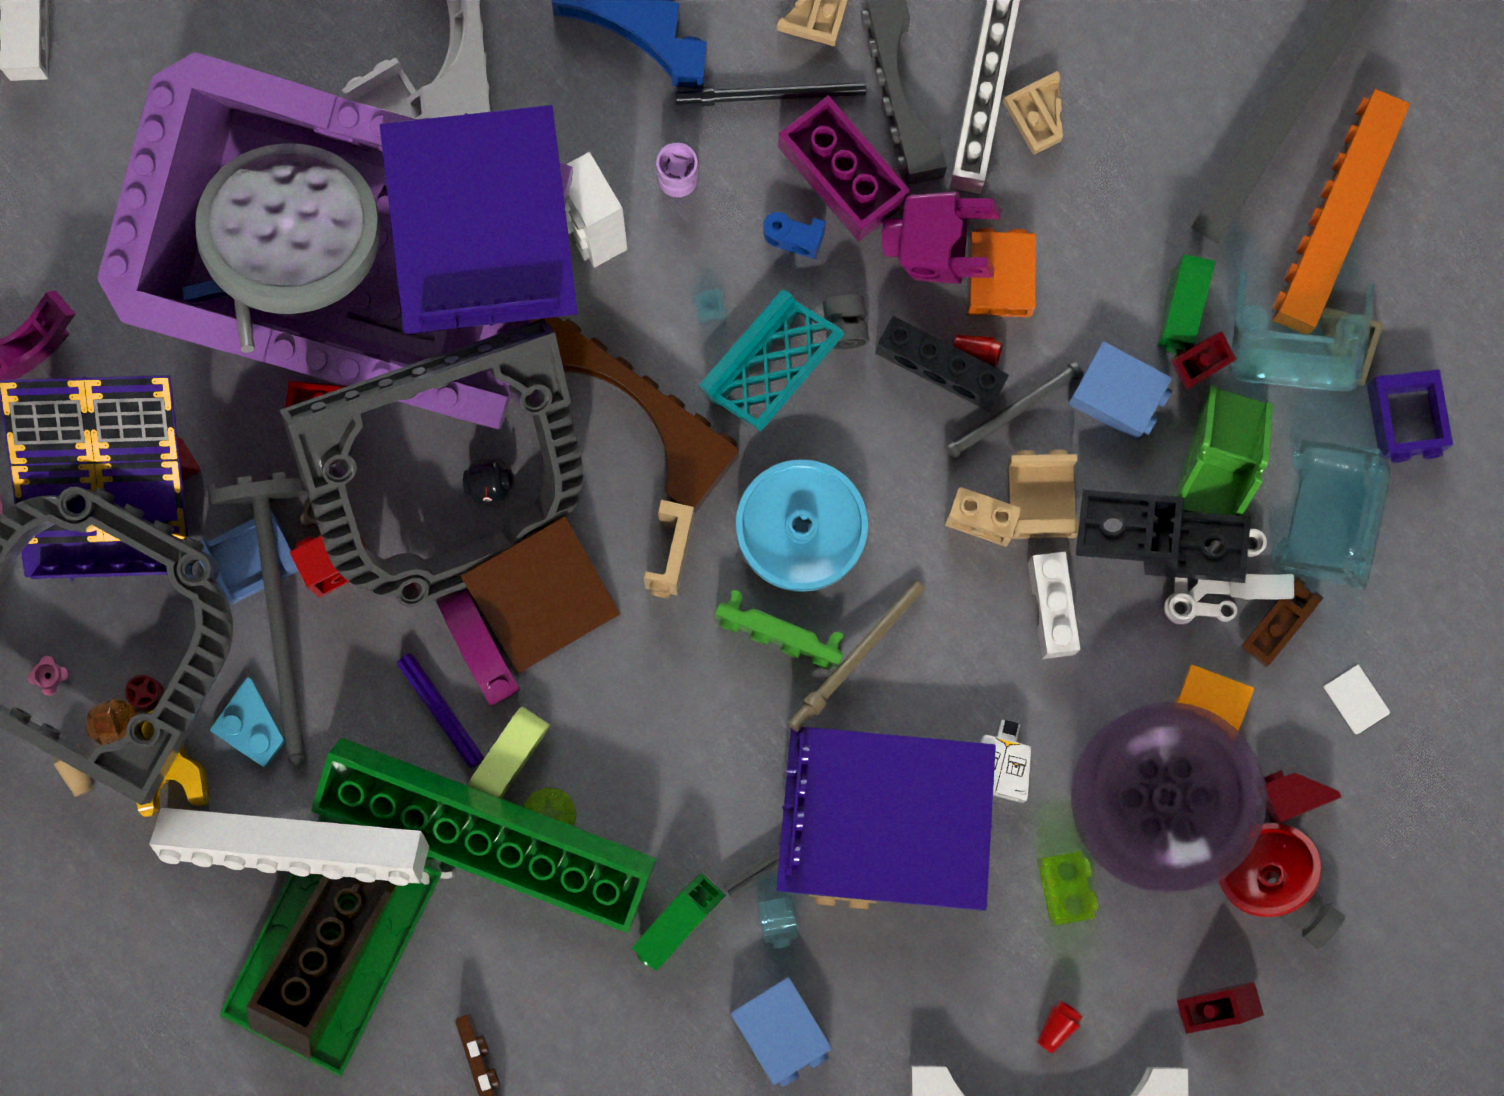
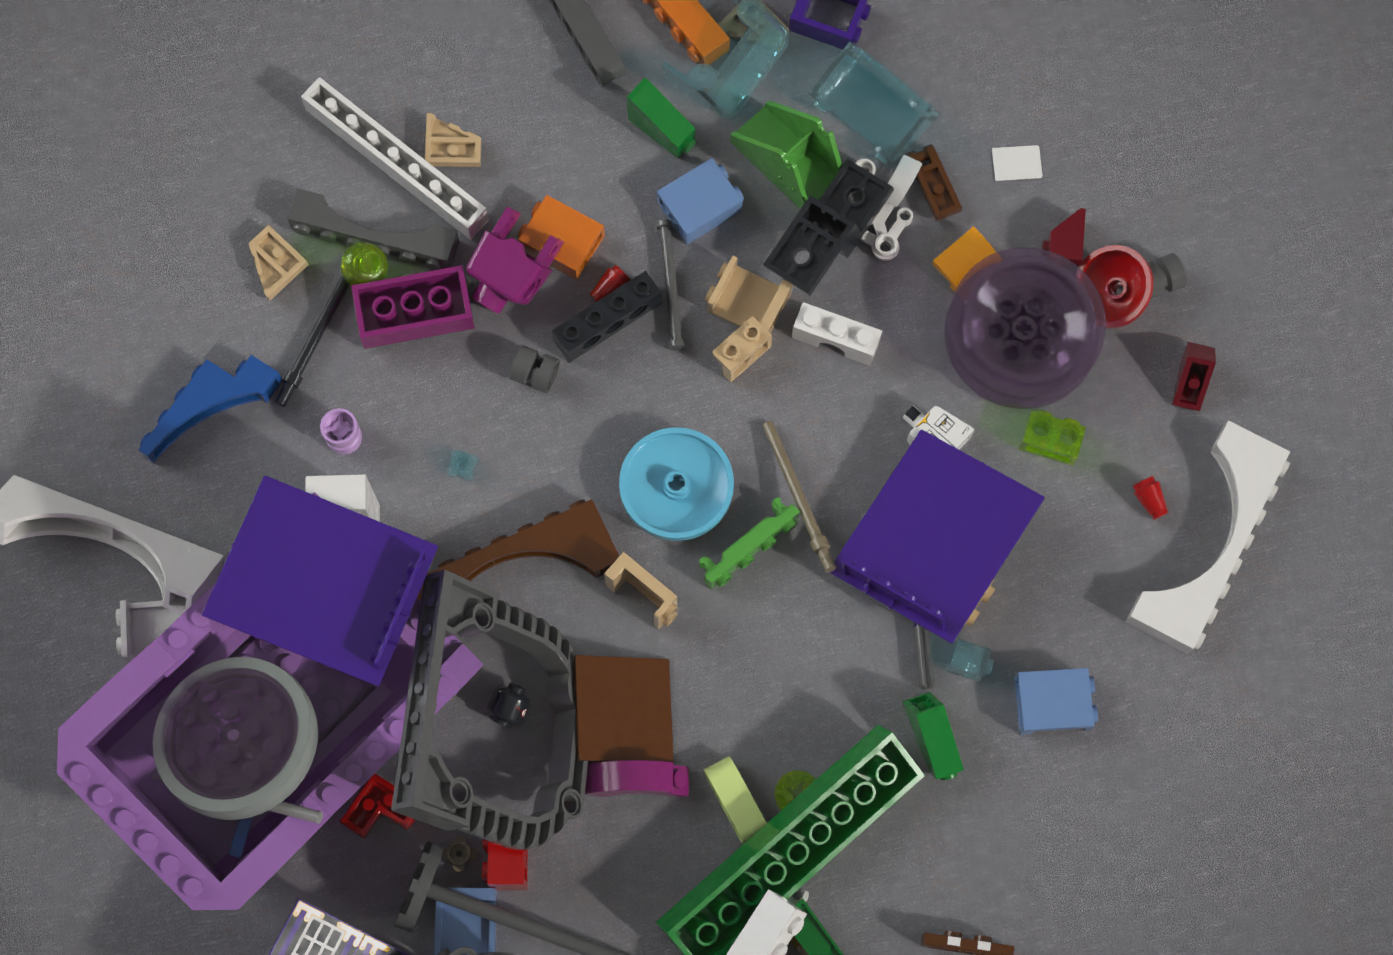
camera: 60 degrees left, 5 degrees down
(440, 710) = (671, 837): dark purple axle -> none
(753, 349) = (518, 453): teal fence -> none
(793, 235) = (443, 373): blue leg -> none
(860, 96) = (363, 263): none -> clear neon green piece
(1203, 359) = (710, 129): dark red slope -> none

